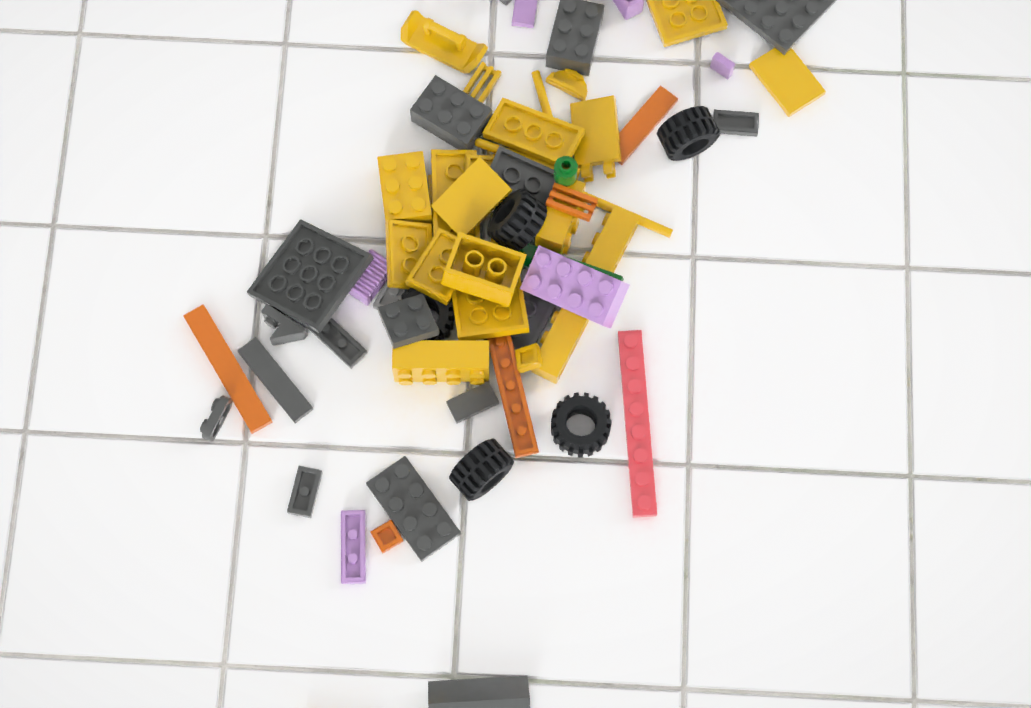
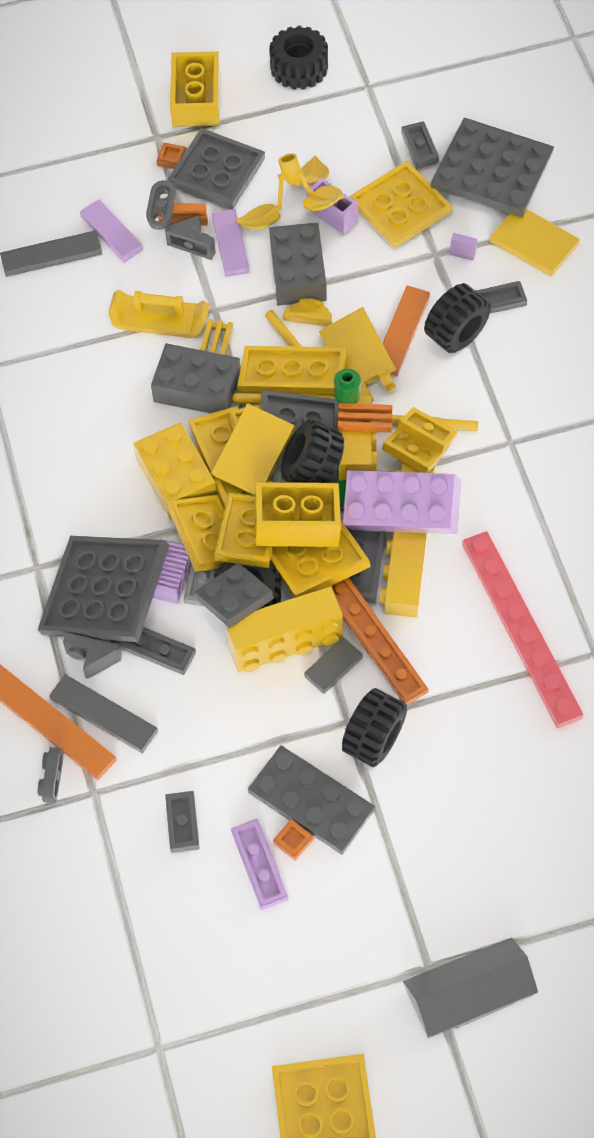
camera: 15 degrees left, 10 degrees down
(528, 358) = (379, 595): yellow tile -> none
(586, 406) = (466, 627): black tyre -> none
(613, 234) = (419, 440): none -> yellow slope

